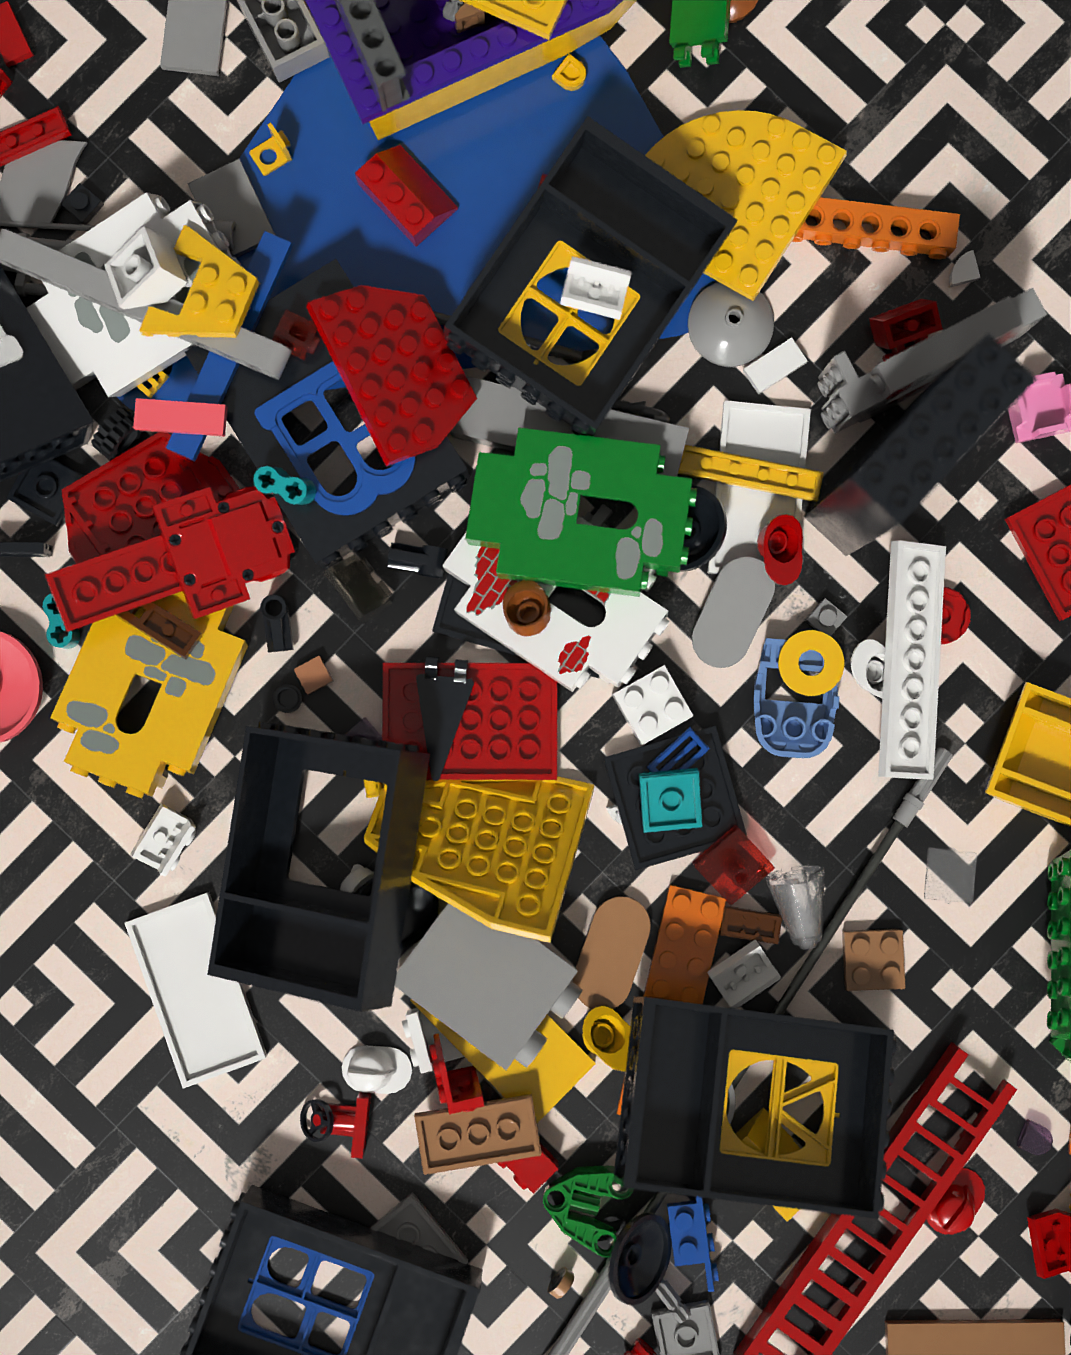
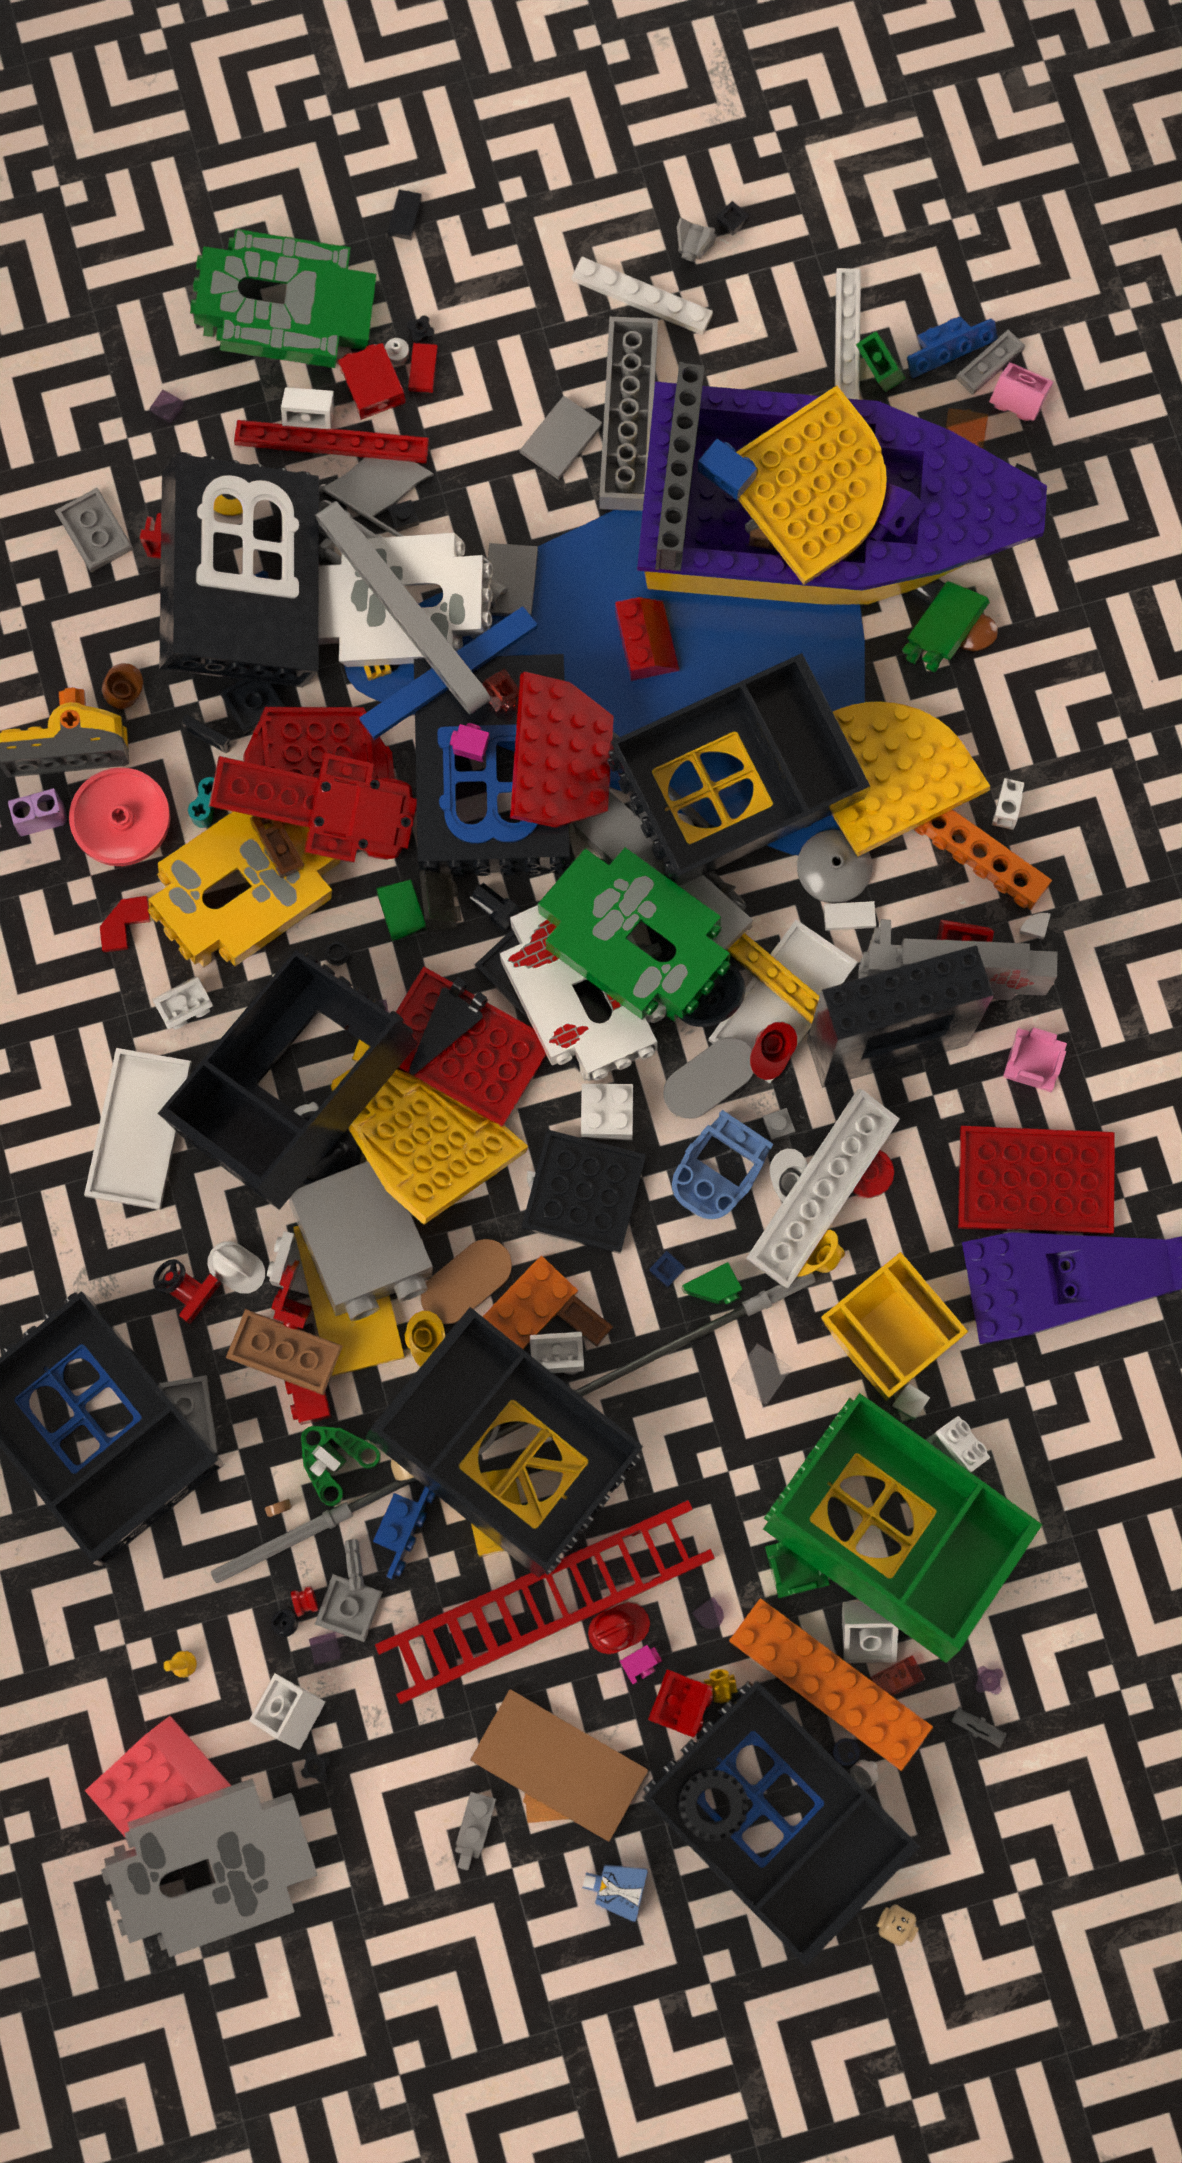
camera: 30 degrees right, 10 degrees down
(47, 801) = (127, 912): none -> red tile
(116, 434) = (330, 691): black tyre -> none
(145, 271) = (420, 586): white slope -> none
(180, 417) = (383, 702): coral tile -> none
(216, 297) = (459, 632): yellow wing -> none
(277, 143) = (572, 550): yellow bracket -> none
(278, 627) = (362, 896): black piece -> none
(284, 485) = (428, 791): teal axle -> none
(296, 408) = (470, 742): none -> dark pink brick
(313, 675) = (366, 947): nougat tile -> none
(325, 617) = (401, 909): none -> green piece
(526, 608) = (553, 980): dark orange hat -> none
(570, 74) = (820, 620): yellow tile -> none
(582, 1220) = (323, 1460): none -> white tile
(595, 287) = (735, 774): white bracket -> none
(639, 1258) = (350, 1514): black dish -> none
(670, 800) = (578, 1187): teal tile -> none
(696, 740) = (605, 1170): blue tile -> none
(733, 865) = (598, 1266): clear red tile -> none
(800, 826) = (667, 1269): none -> dark blue tile
(800, 902) = (631, 1322): clear cone -> none
(832, 657) = (759, 1134): yellow gear -> none
(858, 816) = (715, 1286): none -> green slope
(869, 159) = (1008, 804): none -> white leg
(873, 959) = (664, 1403): medium nougat plate -> none
(950, 727) = (824, 1256): none -> yellow piece
(998, 1226) = (640, 1663): none -> dark pink brick

